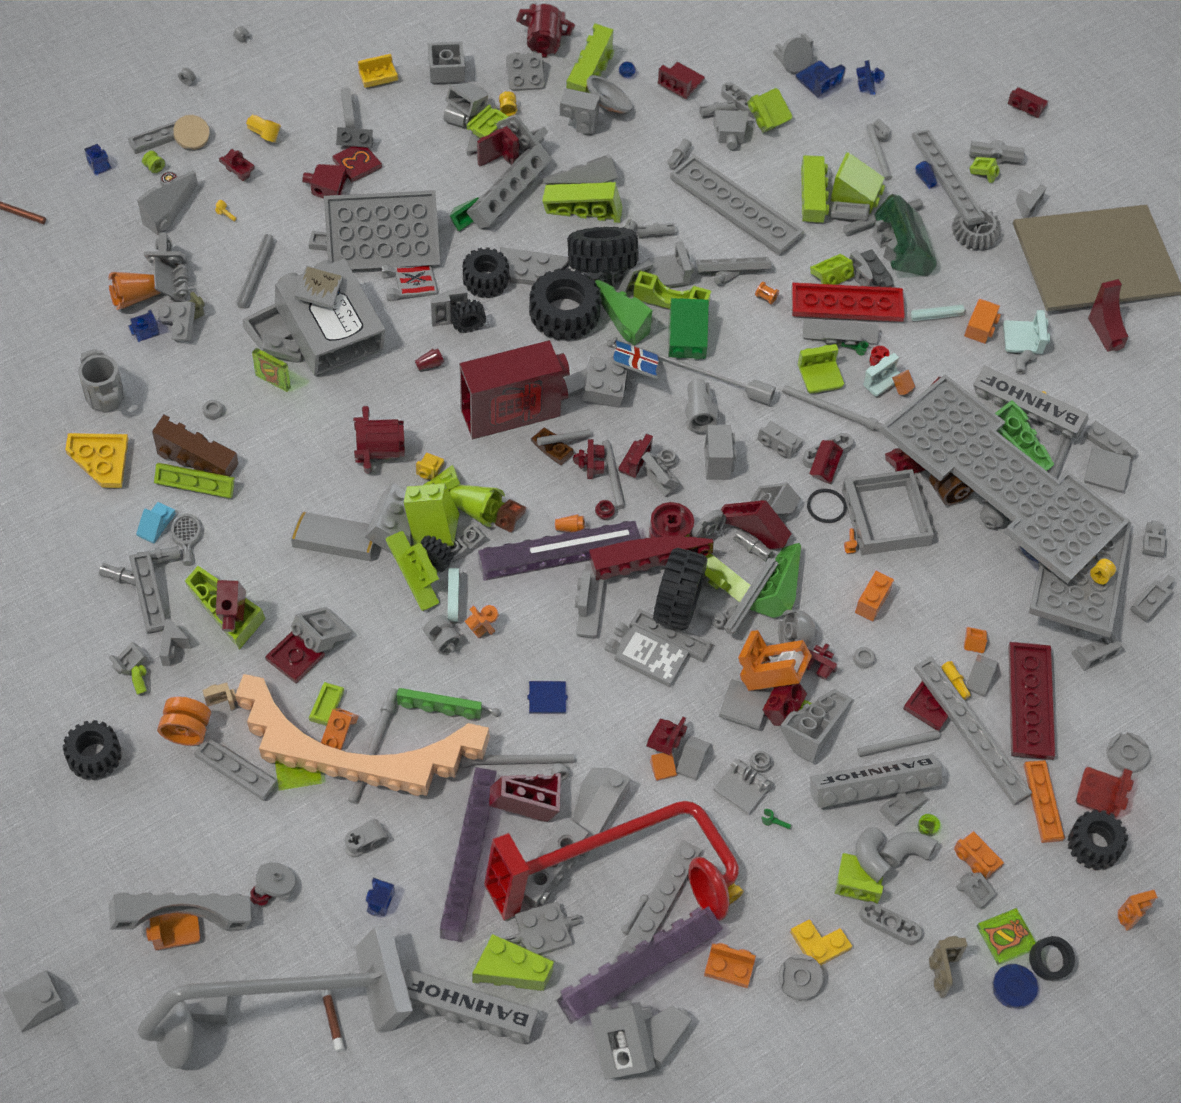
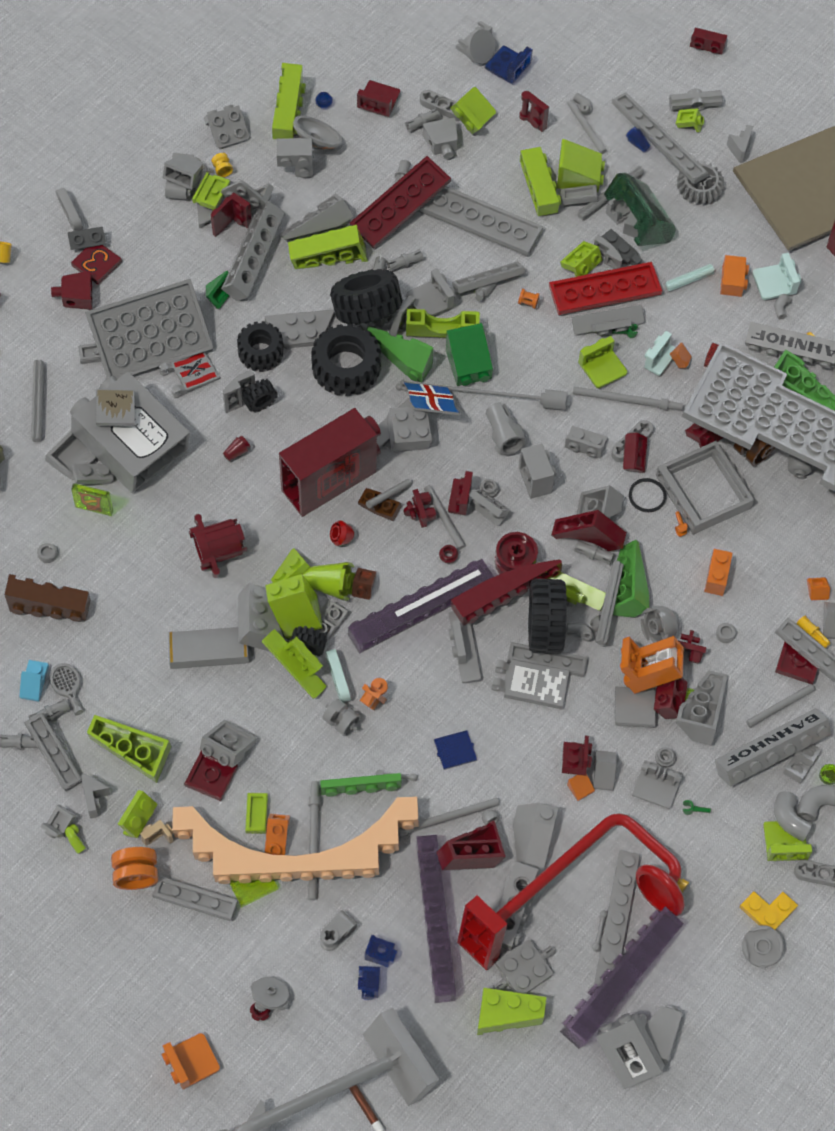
camera: 15 degrees left, 5 degrees up
(88, 735) = (52, 904): black tyre -> none
(194, 480) = (56, 629): lime tile -> none
(206, 671) = (137, 814): none -> lime bracket
(227, 912) = (235, 1036): light grey arch -> none
(230, 603) = (139, 737): dark red torso -> none
(377, 70) = (84, 162): yellow bracket -> none
(401, 878) = (373, 955): none -> clear blue brick
(429, 466) = (272, 555): yellow bracket -> none
(446, 62) = (149, 136): light grey brick -> none
(470, 1007) = (485, 1059): light grey brick -> none
(504, 462) = (341, 533): none -> red cone
(544, 27) = (232, 77): dark red container -> none
(570, 523) = (422, 577): orange cone -> none
(669, 174) = (401, 201): none -> dark red plate
(708, 525) = (548, 549): light grey tile -> none
(730, 965) = (697, 953): orange bracket -> none
(833, 126) = (539, 111): none -> dark red plate
(876, 75) = (561, 49): clear blue hips -> none
(877, 354) = (648, 333): red wheel -> none

